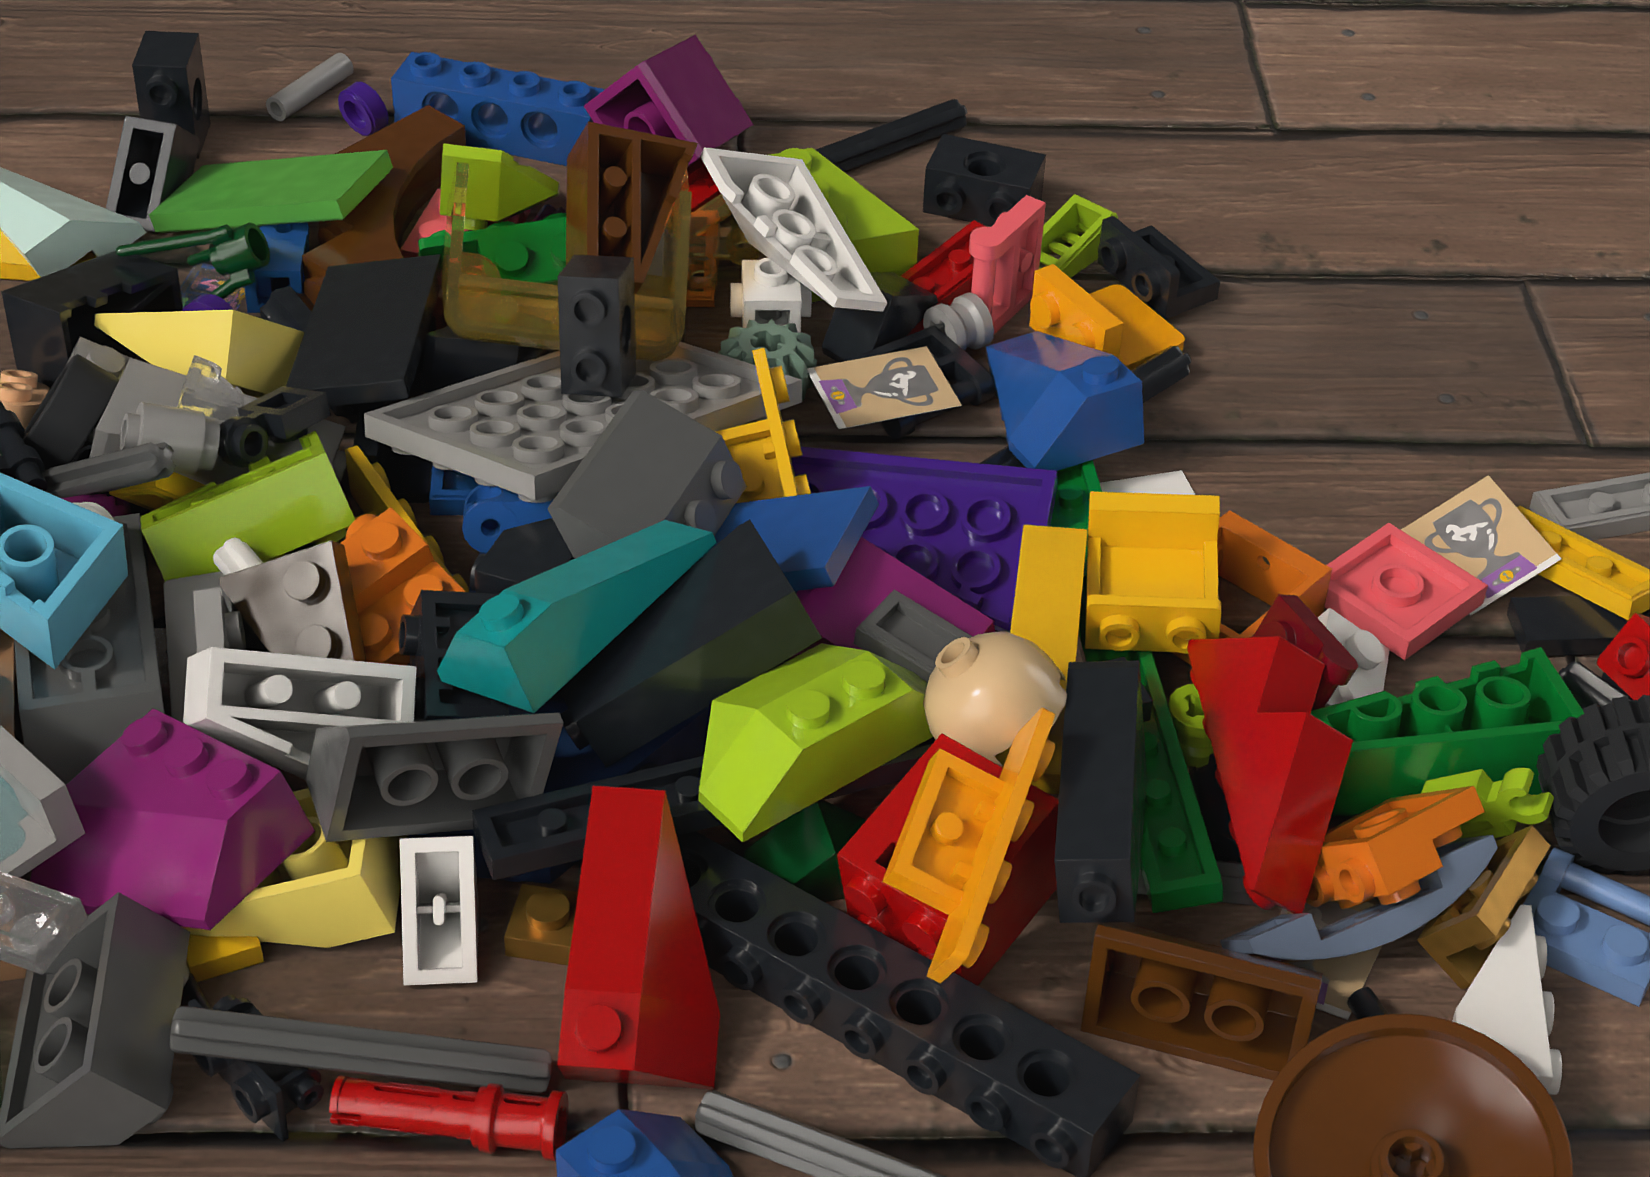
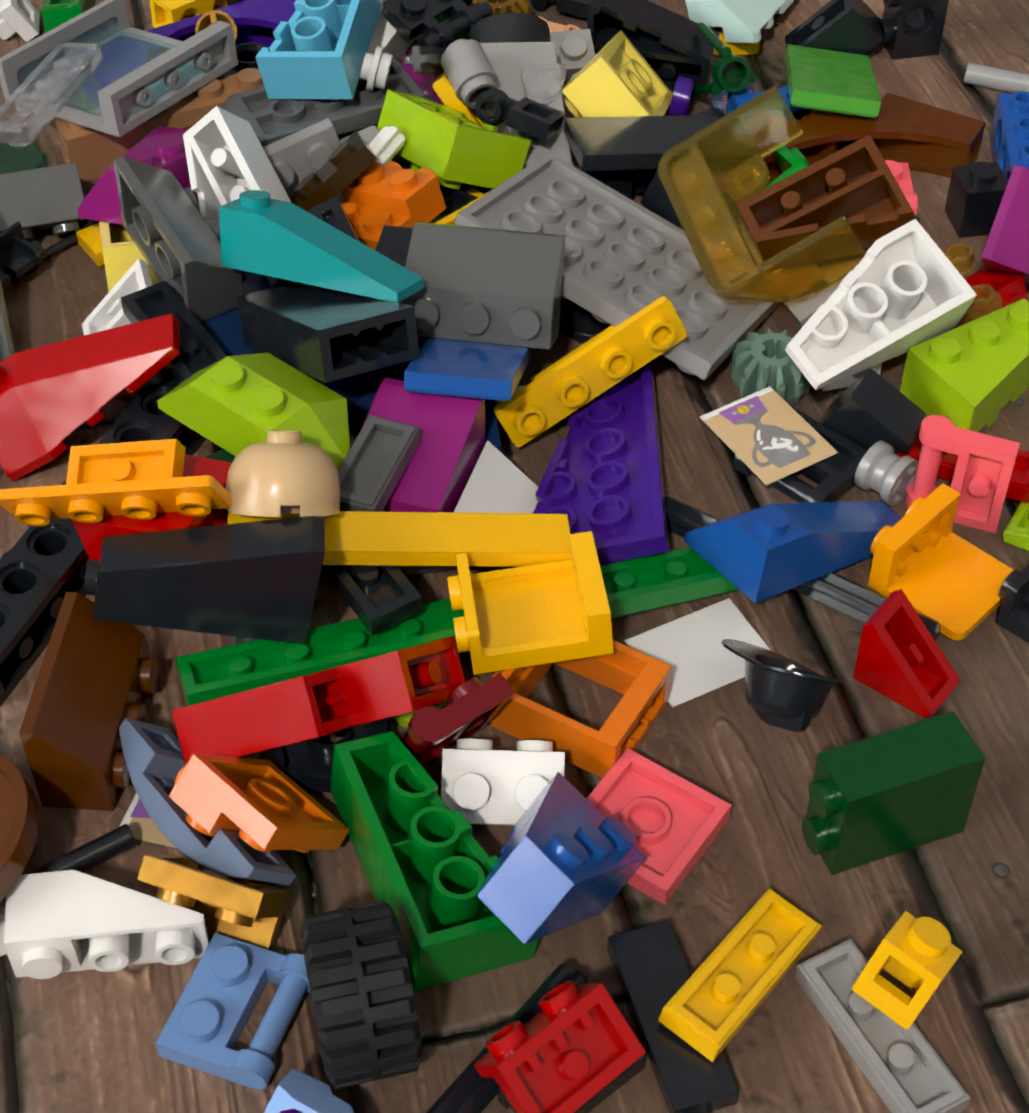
camera: 80 degrees right, 5 degrees up
(363, 108) = (984, 103): dark purple tile -> none
(495, 185) = (836, 123): lime wedge -> none
(543, 143) = (975, 197): none -> black brick
(597, 325) = (677, 193): black brick -> none
(1210, 383) = (903, 658): none -> red slope
(1245, 460) = (780, 688): none -> black piece
(1407, 409) = (892, 792): none -> dark green brick
(1485, 538) = (742, 891): sticker -> none
(1499, 614) = (559, 864): none -> wedge
(1503, 801) = (338, 880): lime plate -> none
(1597, 446) = (918, 956): none -> yellow brick

